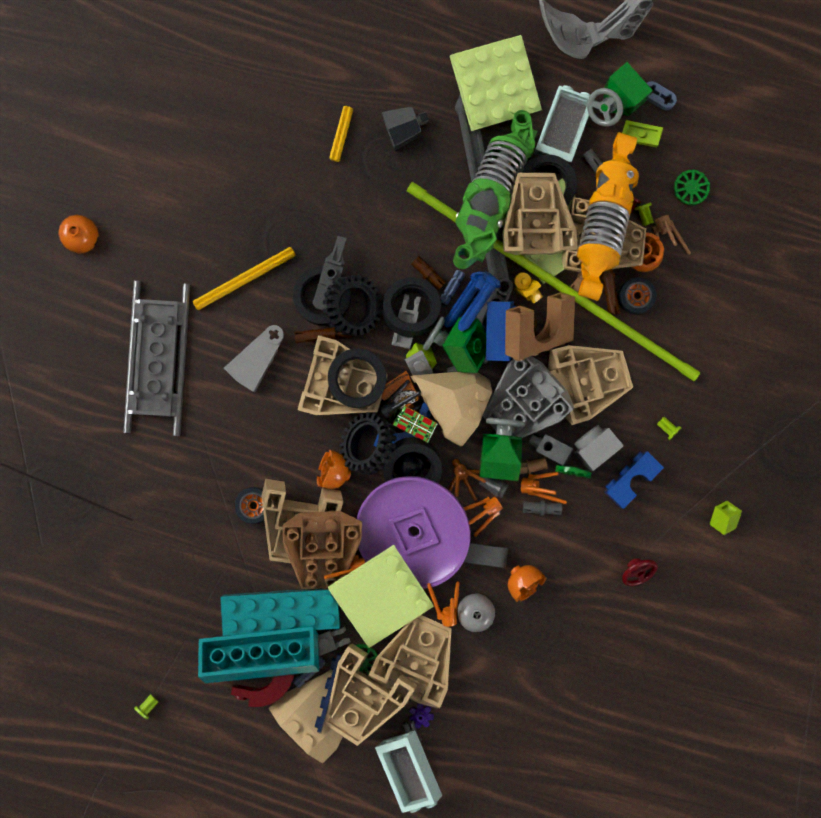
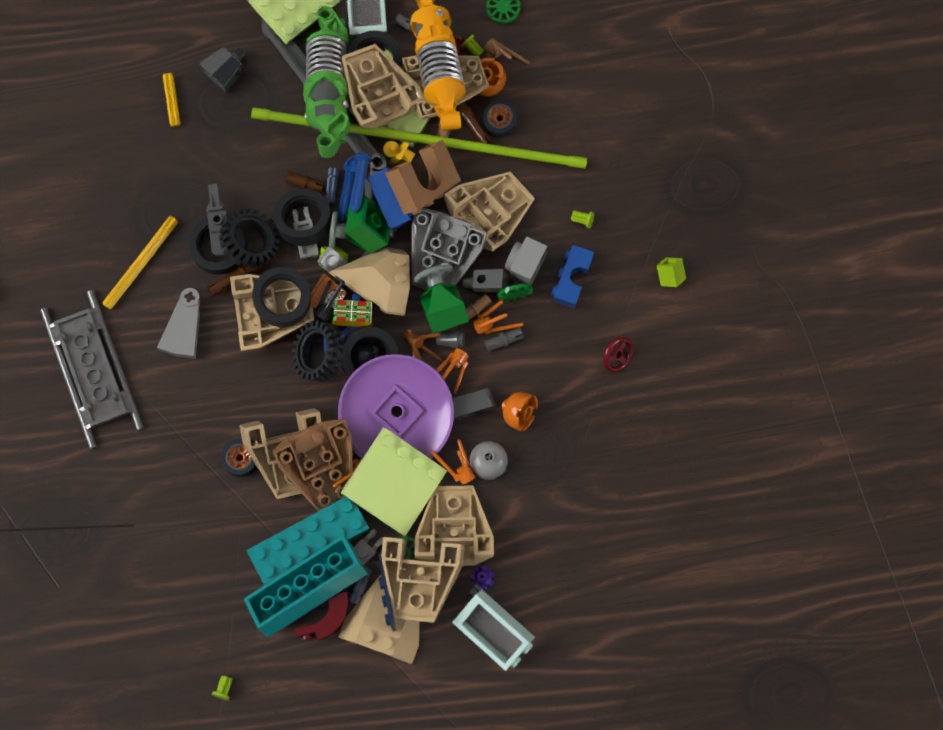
camera: 25 degrees left, 10 degrees down
(333, 471) = (298, 391): orange cylinder -> none

